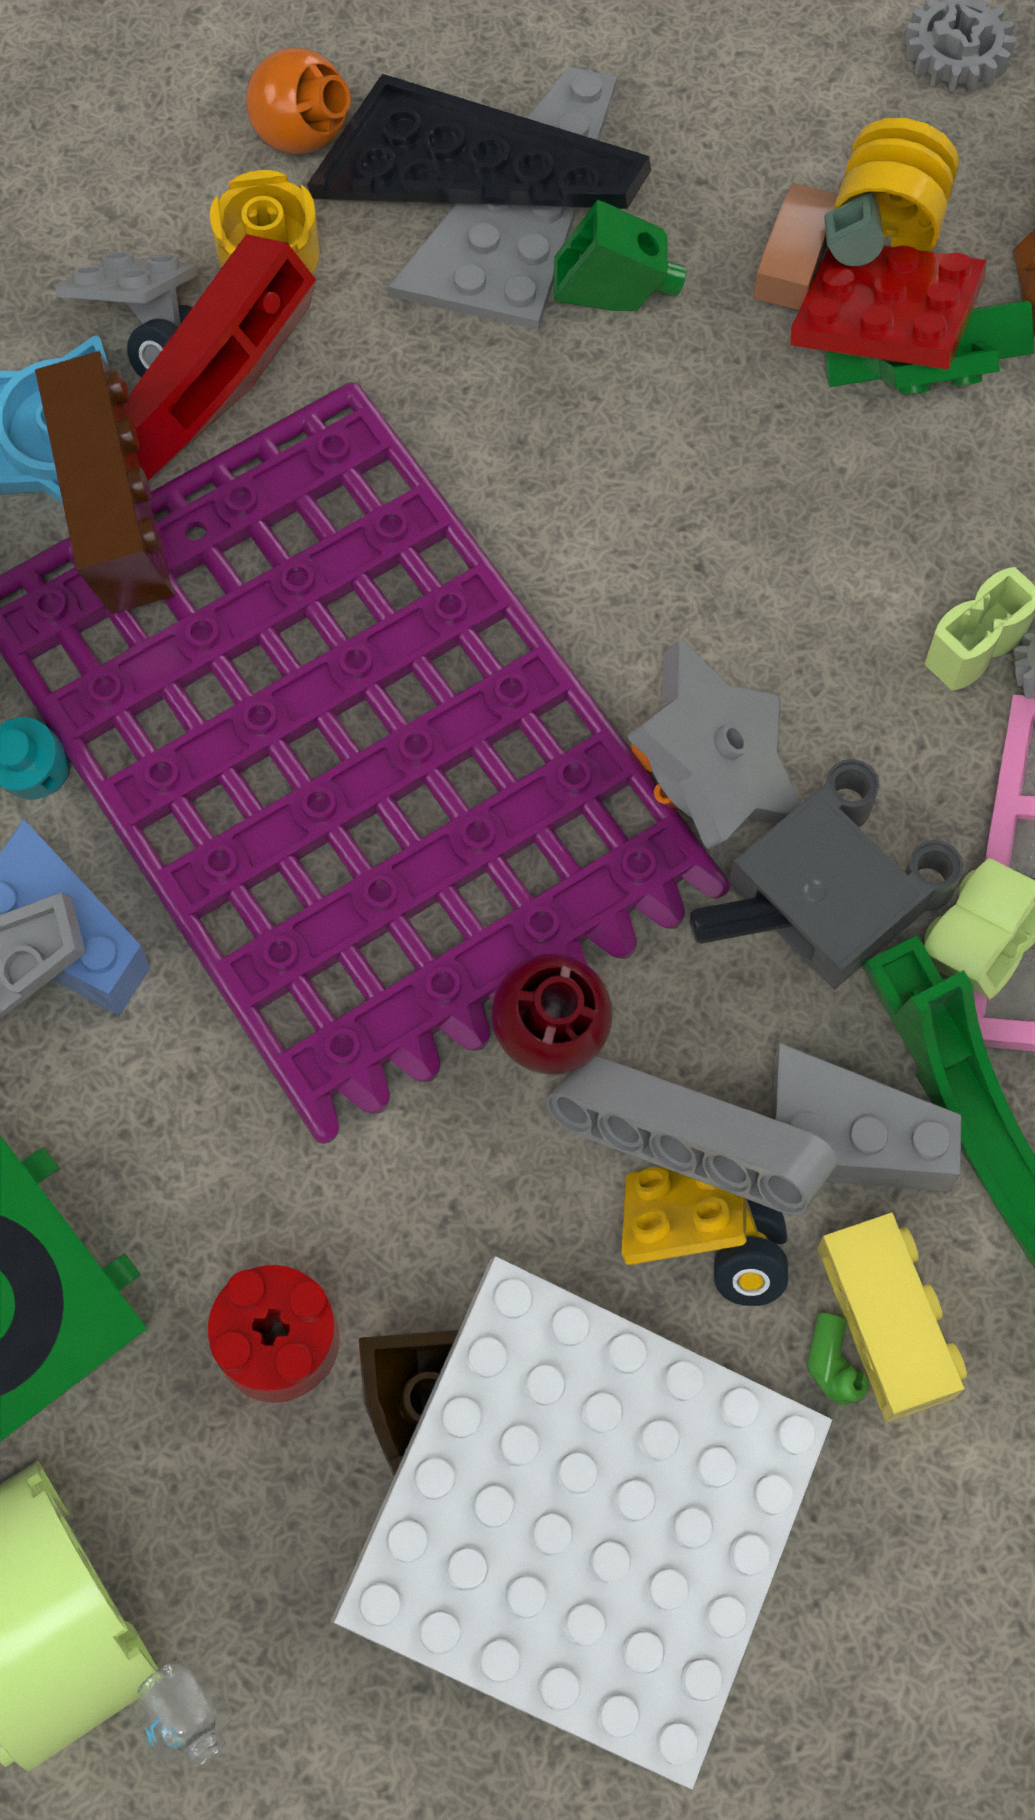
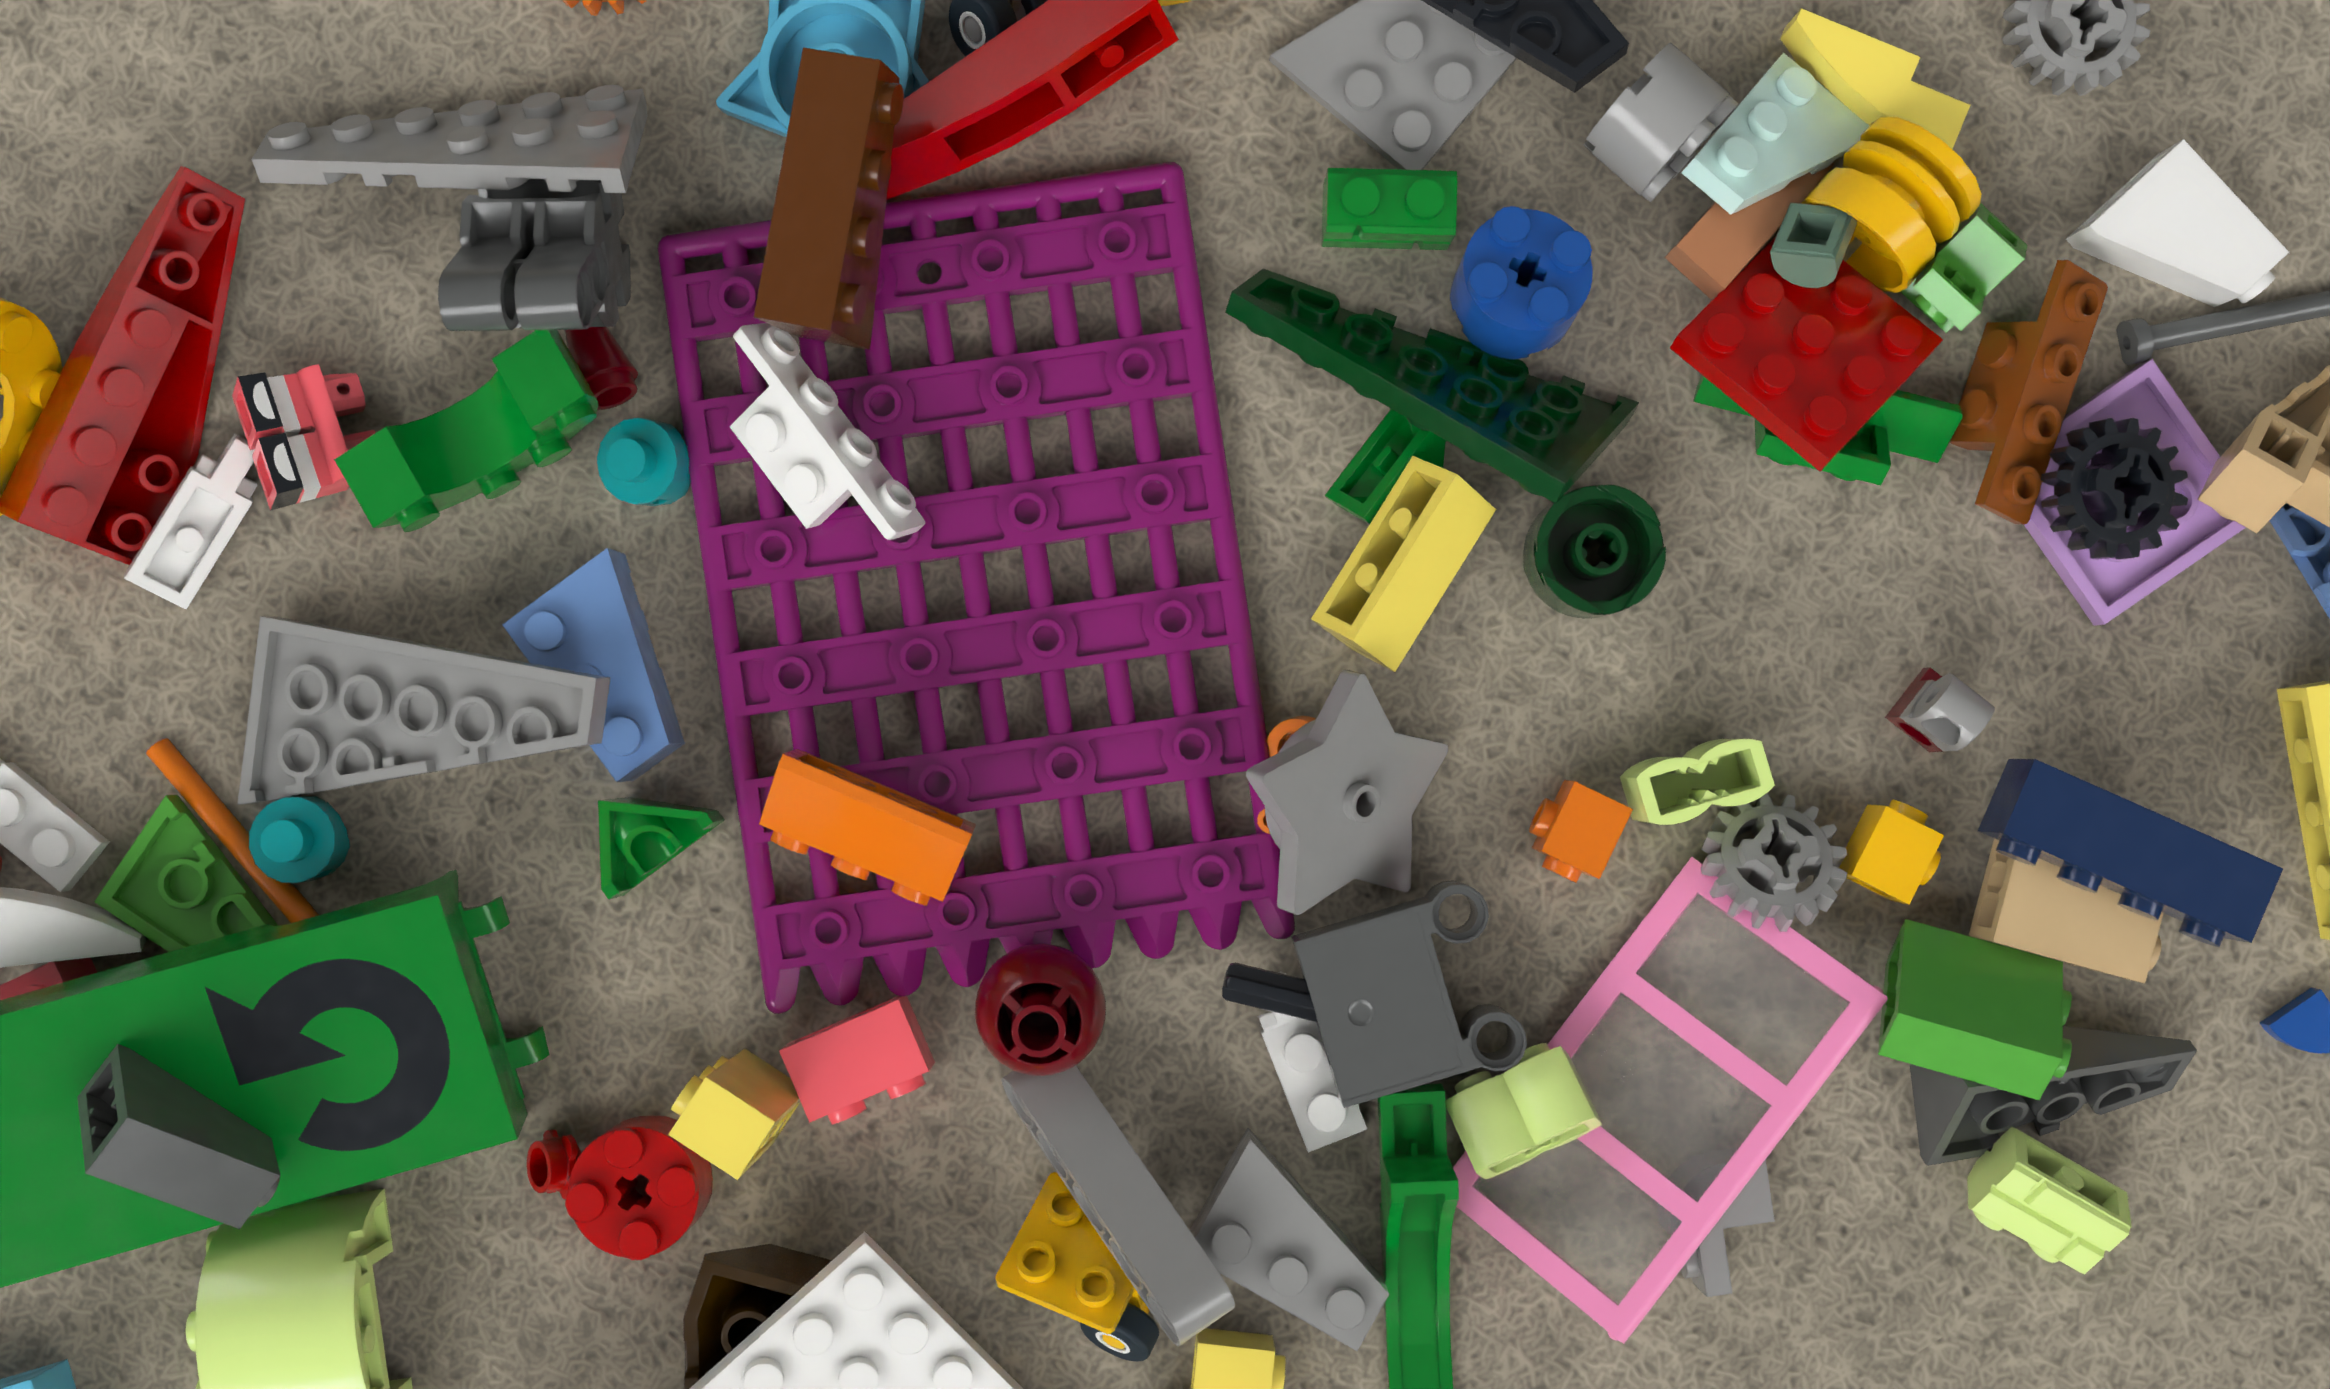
camera: 25 degrees right, 20 degrees up
(155, 678) = (810, 443): none -> white bracket
(155, 1036) = (643, 837): none -> green slope
(187, 1358) = (552, 1162): none -> red plate
(332, 1201) = (734, 1111): none -> light yellow brick
(338, 924) = (865, 826): none -> orange slope
(416, 1144) = (858, 1059): none -> coral brick
(530, 345) = (1389, 208): none -> green brick
(614, 262) = (1528, 152): green torso -> none
(627, 438) = (1442, 384): none -> dark green wing
(629, 517) = (1381, 462): none -> green slope
(656, 349) = (1525, 250): none -> blue brick
(671, 570) = (1404, 563): none -> light yellow brick
(700, 203) = (1660, 122): none -> light grey brick
(787, 186) = (1774, 137): none -> light aqua wing
(798, 991) = (1308, 1081): none -> white hinge
(812, 505) = (1629, 546): none -> dark green brick
(819, 125) = (1870, 75): none -> light yellow slope
(913, 708) = (1578, 830): none -> orange brick
(974, 214) = (1966, 270): none -> bright green brick

